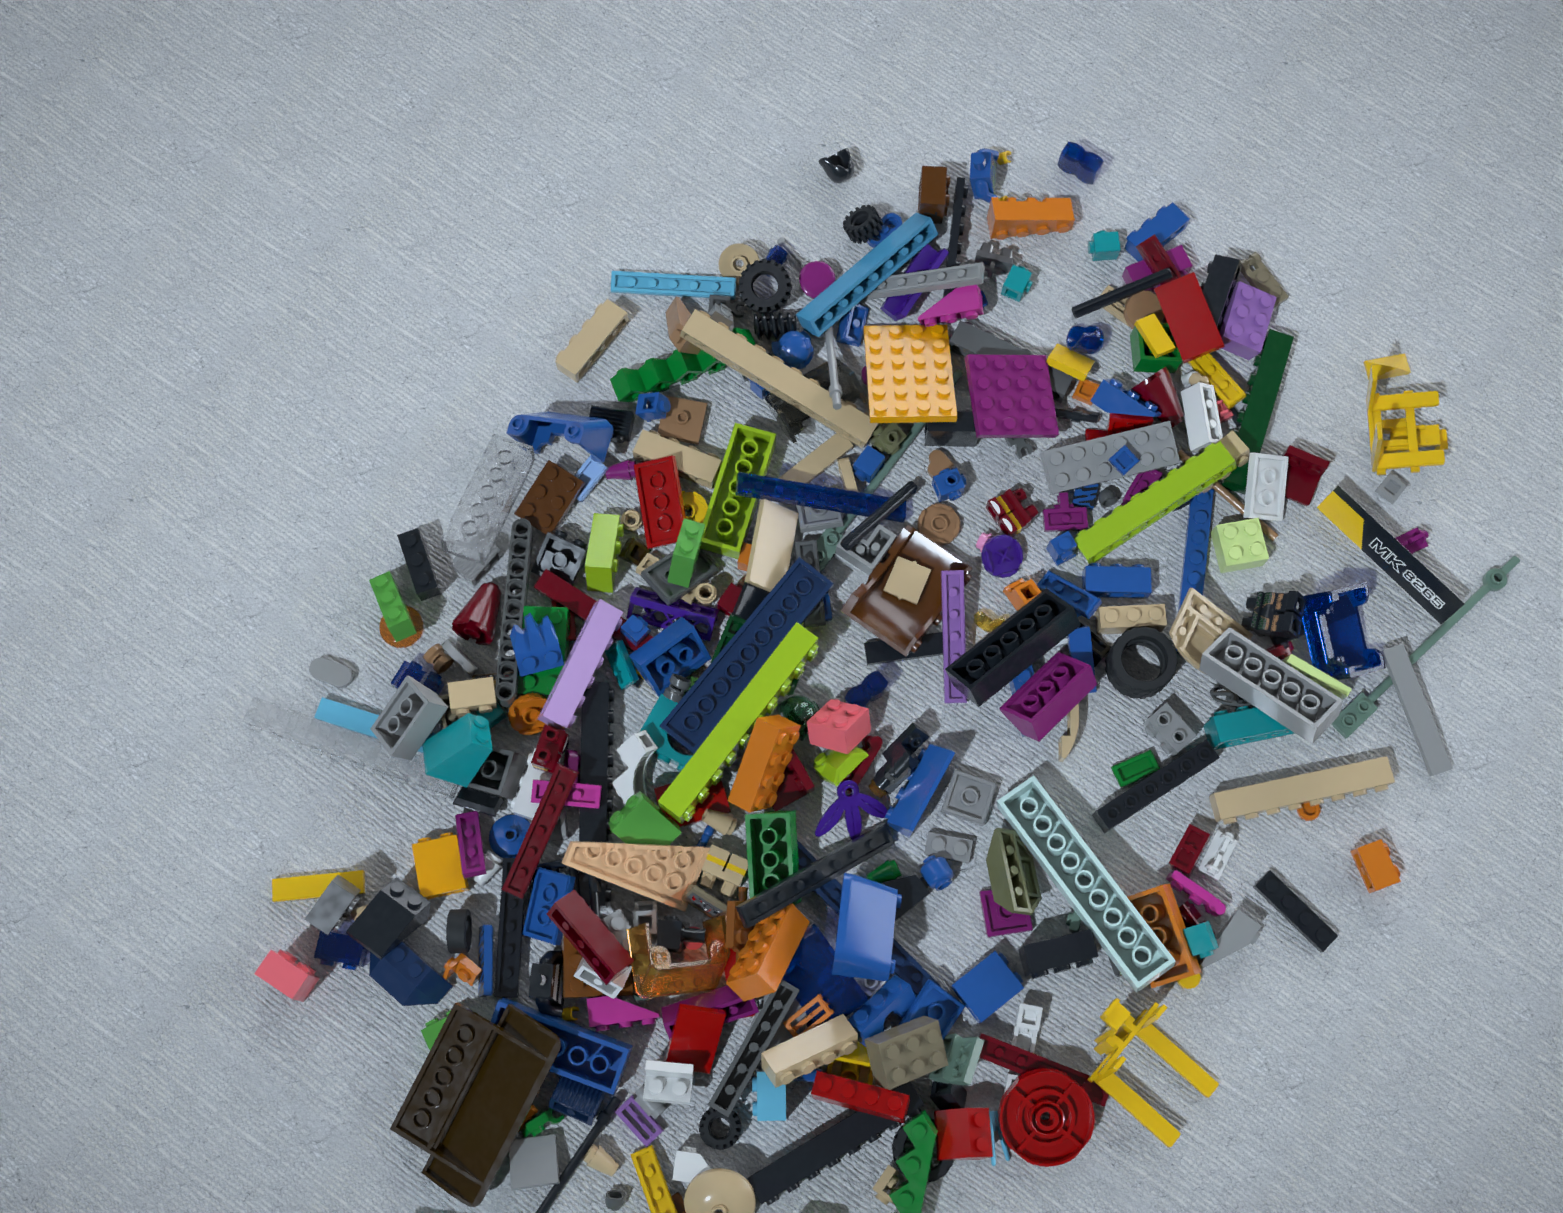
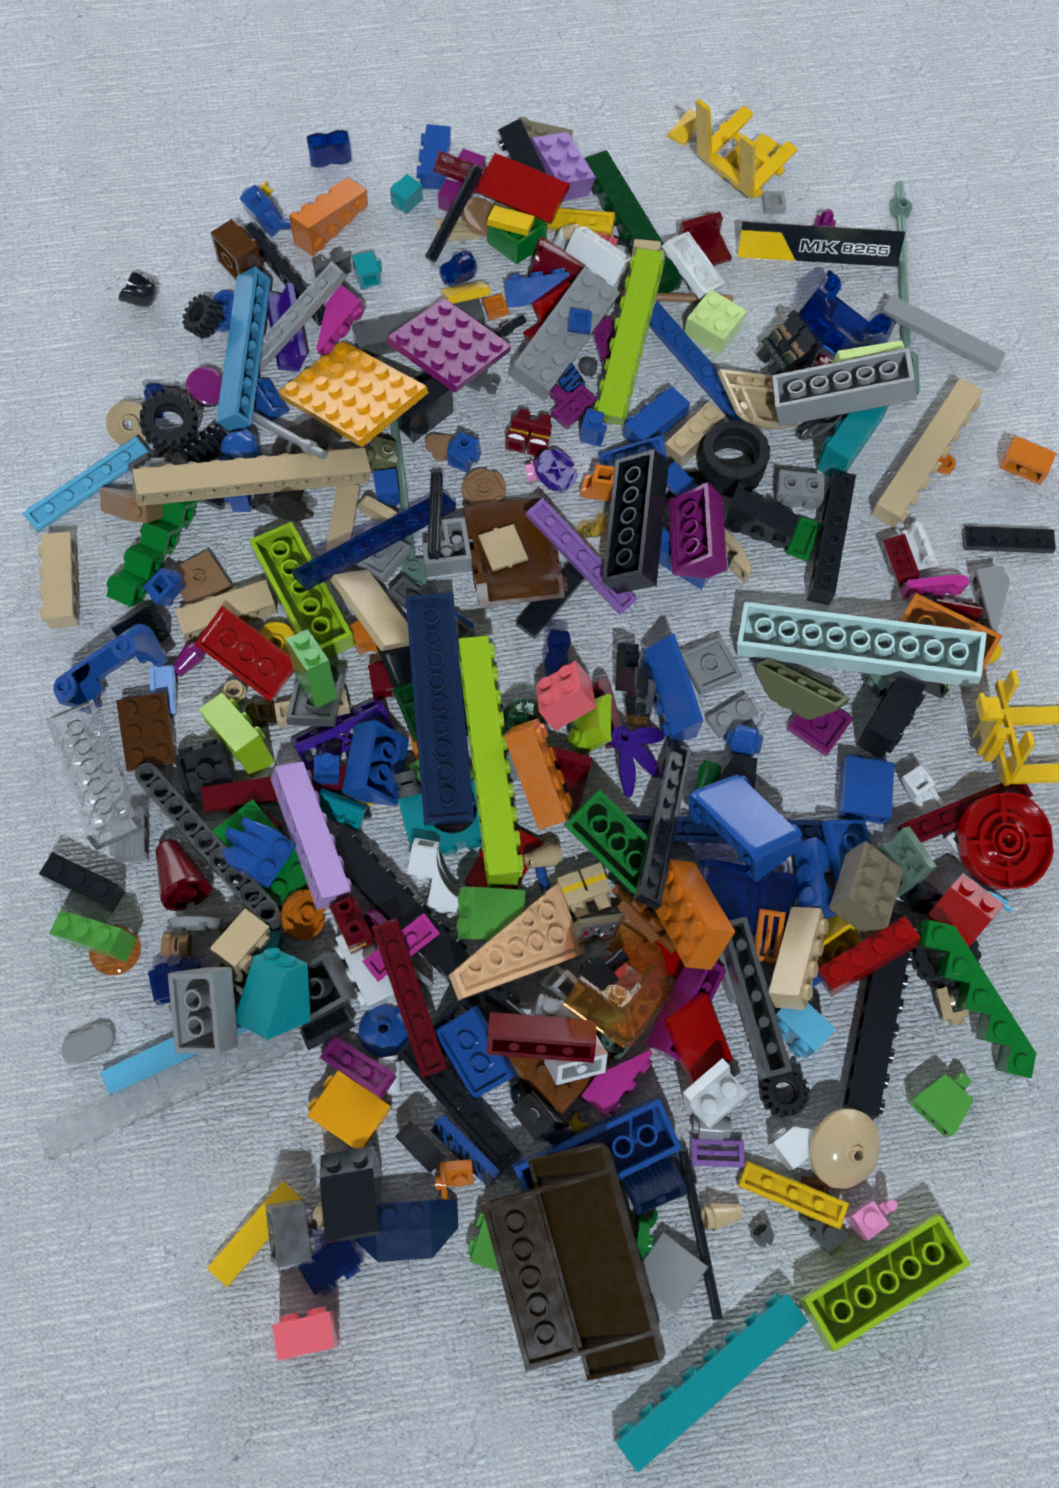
camera: 50 degrees left, 5 degrees down
(705, 589) = (356, 691): tan cone -> none
(1114, 726) = (759, 519): none -> black wedge
(1201, 939) = (977, 609): teal brick -> none

